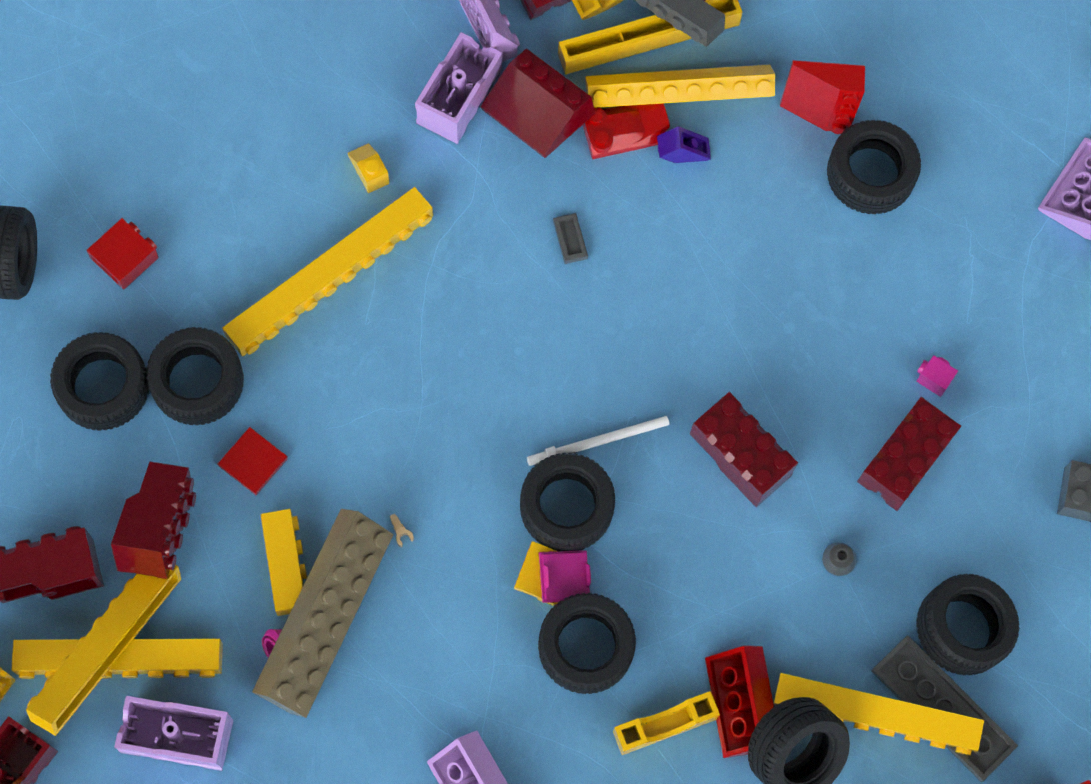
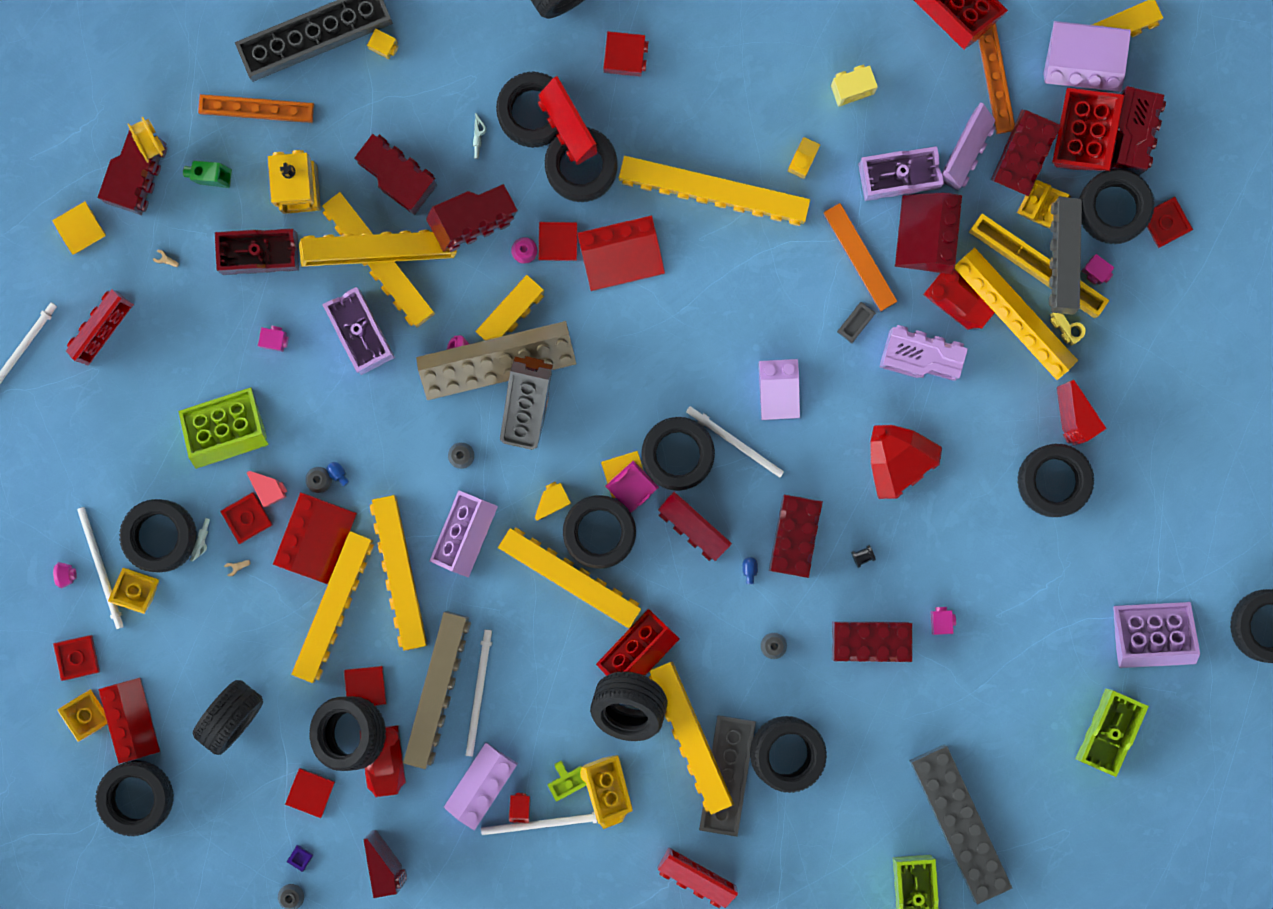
camera: 60 degrees right, 15 degrees up
(77, 457) = (477, 136): none -> light aqua hand
(141, 343) = (567, 122): none -> red slope
(236, 506) = (524, 256): none -> dark pink cone
(316, 407) = (621, 253): none -> red slope
(338, 67) = (853, 85): none -> light yellow brick
(392, 738) = (465, 450): none -> dark grey cone
(393, 608) = (526, 402): none -> dark grey piece
(400, 530) = (584, 364): tan piece -> none
(508, 187) = (860, 257): none -> orange tile
(515, 669) = (552, 500): none -> yellow slope
(578, 357) = (779, 389): none -> lavender slope
(602, 715) = (570, 578): none -> yellow brick
(652, 198) = (917, 354): none -> lavender piece
(656, 539) = (694, 526): none -> dark red slope
(666, 724) = (587, 615): yellow arch -> none
(683, 146) = (977, 347): dark purple slope -> none
(727, 54) = (1059, 321): none -> light yellow plate
(741, 292) = (900, 459): none -> red brick
(742, 523) = (750, 569): none -> blue cylinder
(812, 401) = (863, 556): none -> black bush

